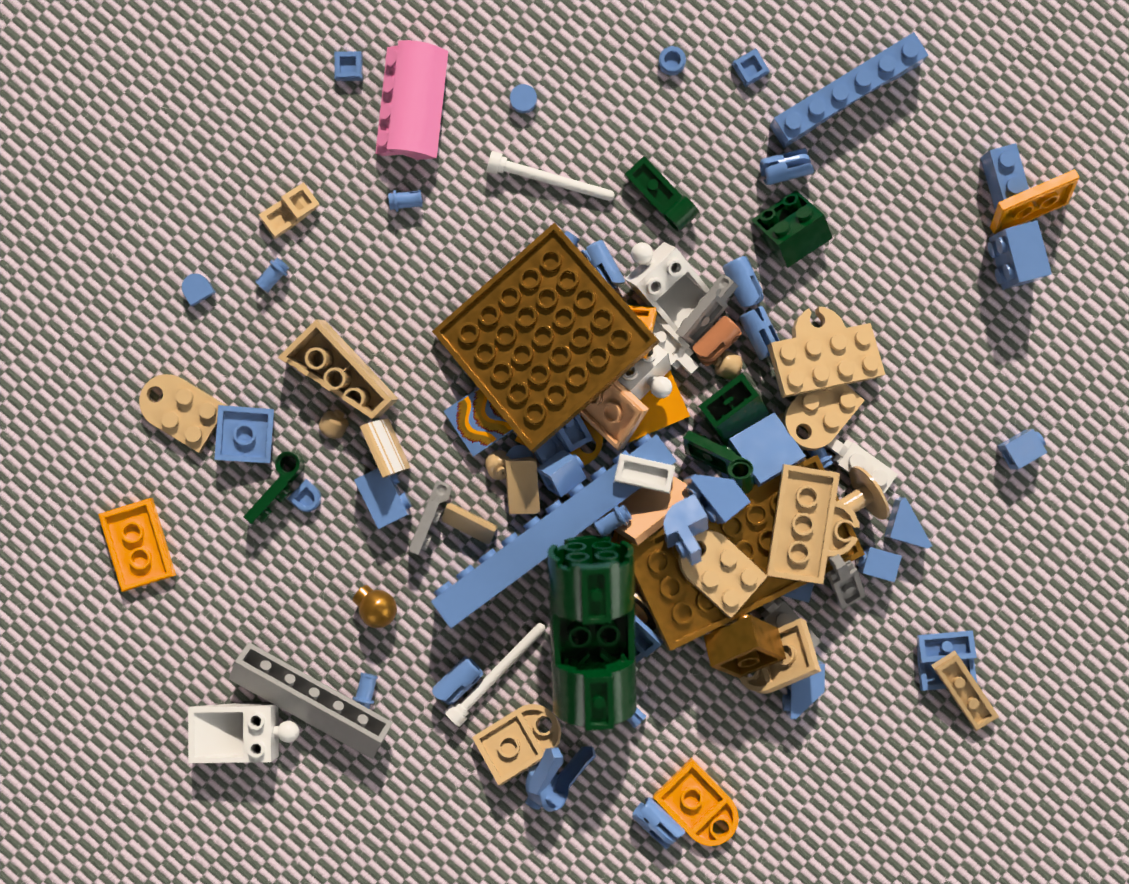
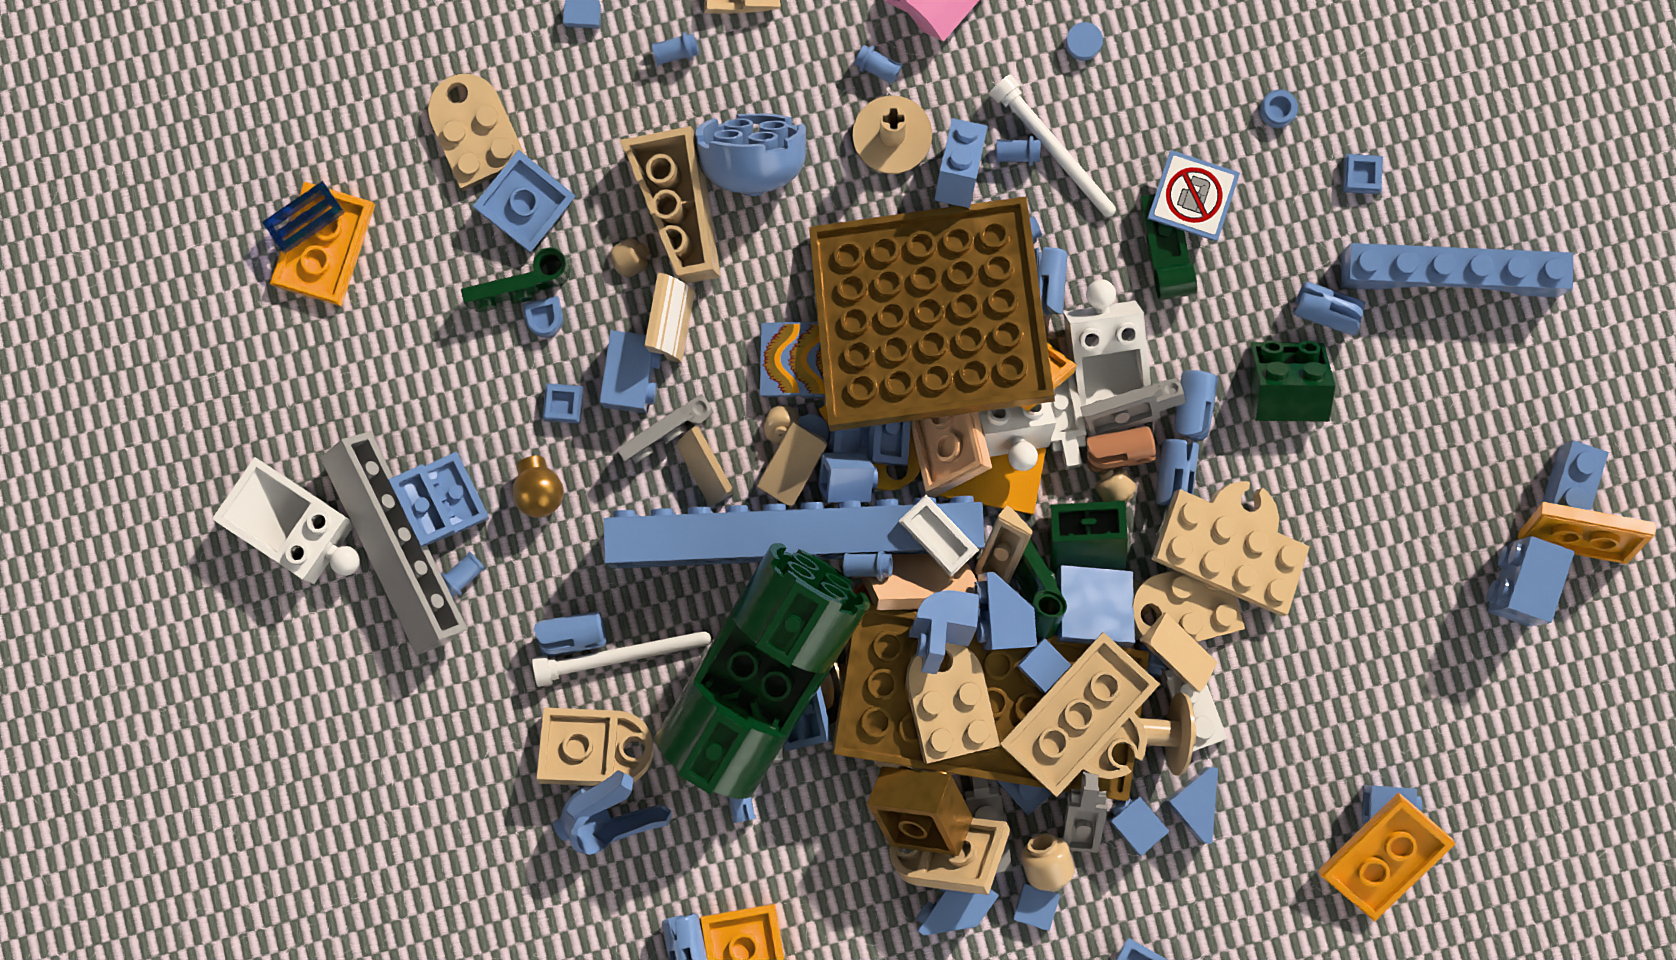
camera: 30 degrees right, 5 degrees down
(122, 515) = (310, 229): none -> tile
(319, 655) = (438, 499): none -> medium blue slope
(355, 542) = (563, 403): none -> medium blue tile
(364, 317) = (748, 160): none -> medium blue cylinder
(444, 251) = (892, 149): none -> tan piece
(499, 228) = (960, 163): none -> medium blue brick
(529, 195) = (1018, 150): none -> medium blue pin
(656, 152) = (1193, 195): none -> piece
(687, 451) = (1004, 545): none -> tan slope
(761, 508) = (1043, 665): none -> medium blue tile
(836, 443) = (1179, 652): none -> tan slope
(840, 623) = (1047, 862): none -> tan head
(850, 653) = (1036, 907): none -> medium blue tile
(1041, 482) = (1386, 857): none -> light orange tile

